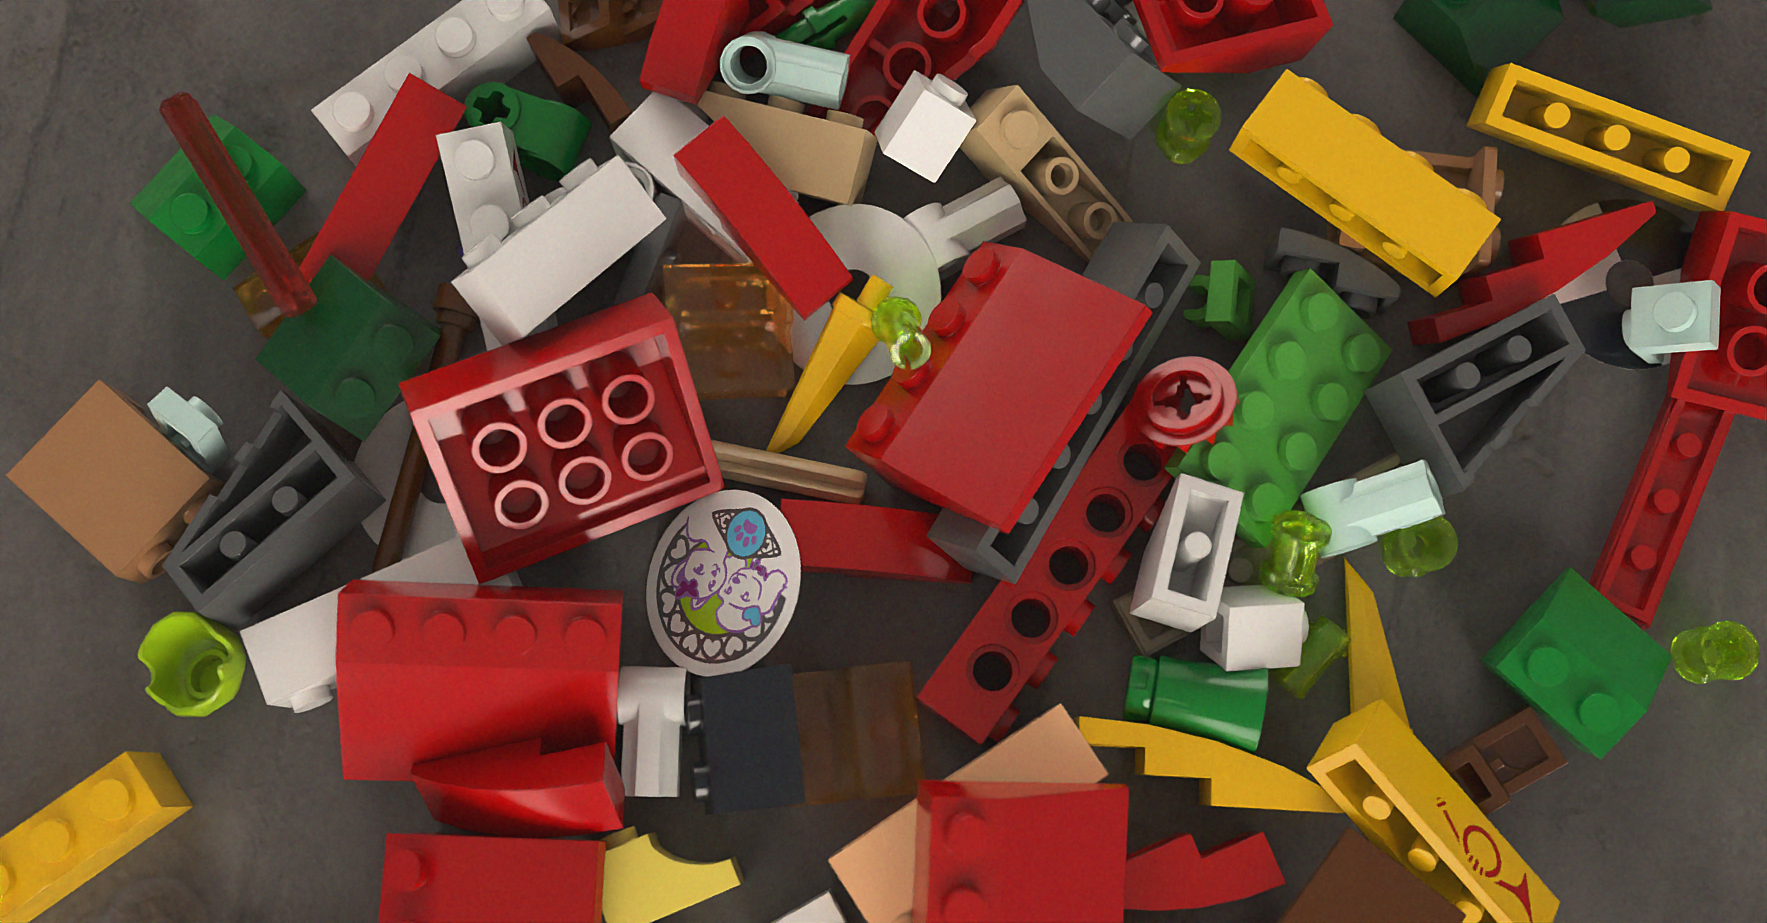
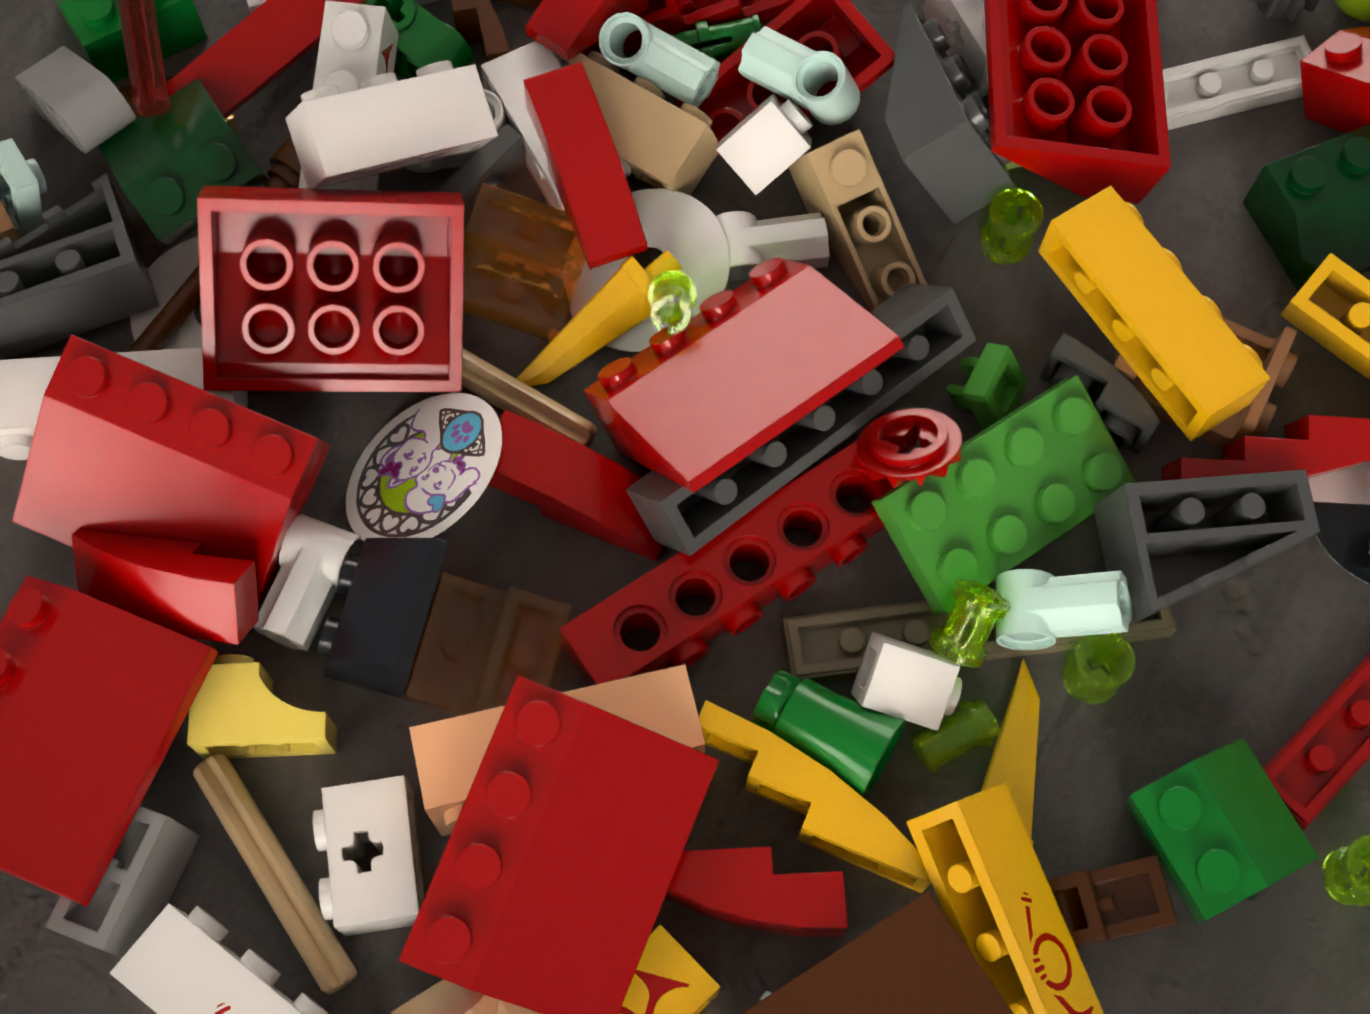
camera: 20 degrees right, 10 degrees down
(209, 316) = (75, 99): none -> light grey beam
(933, 45) = (799, 73): none -> light aqua piece
(1188, 555) = (863, 585): white slope -> none

